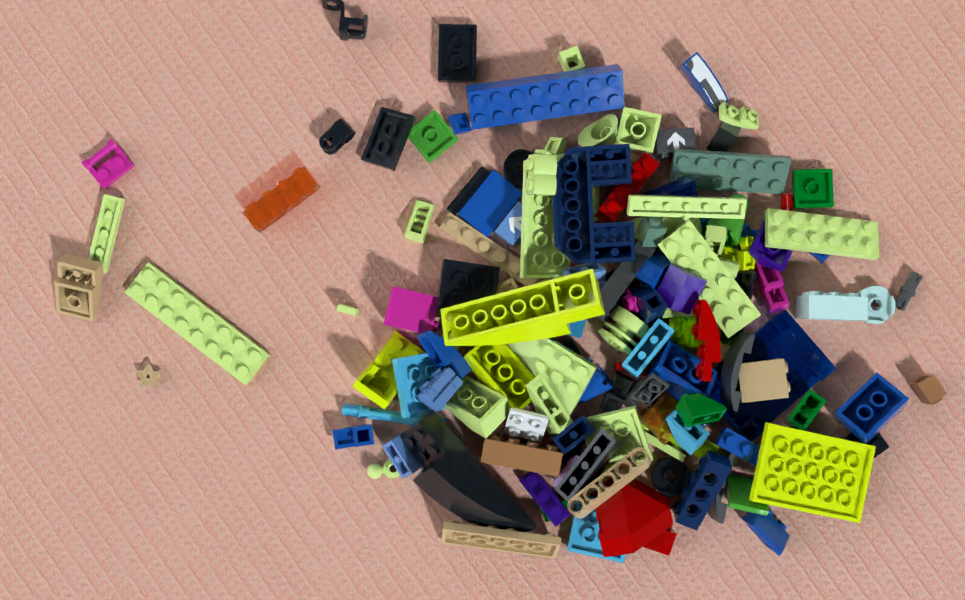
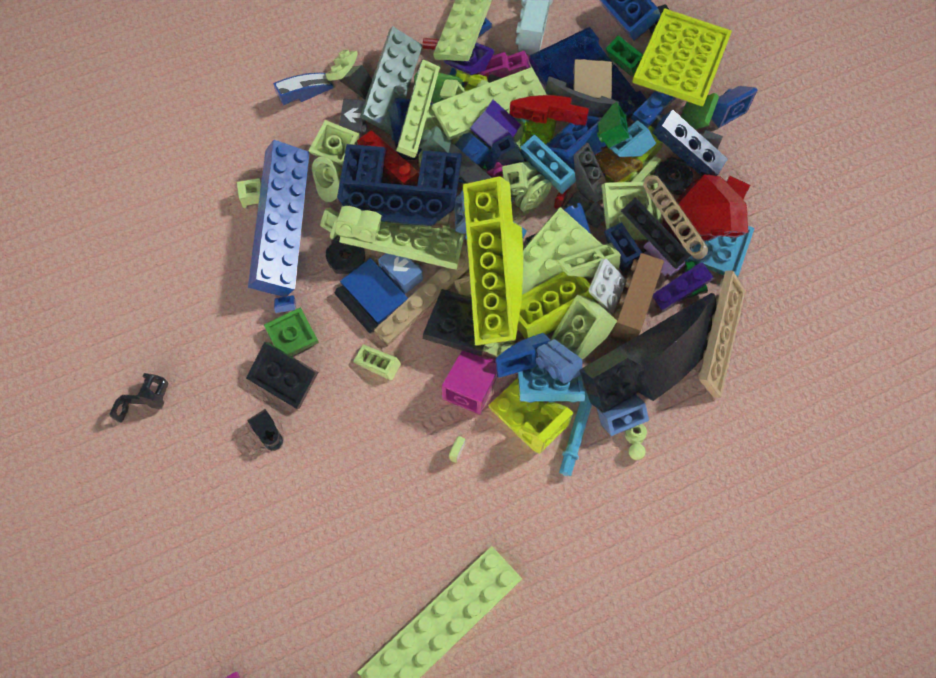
camera: 80 degrees left, 20 degrees down
(281, 199) = (320, 501): clear orange brick -> none
(353, 436) = (596, 464): blue brick -> none
(457, 53) = (211, 295): black plate -> none
(613, 314) = (513, 172): none -> yellowish green brick
(812, 188) = (422, 21): green plate -> none

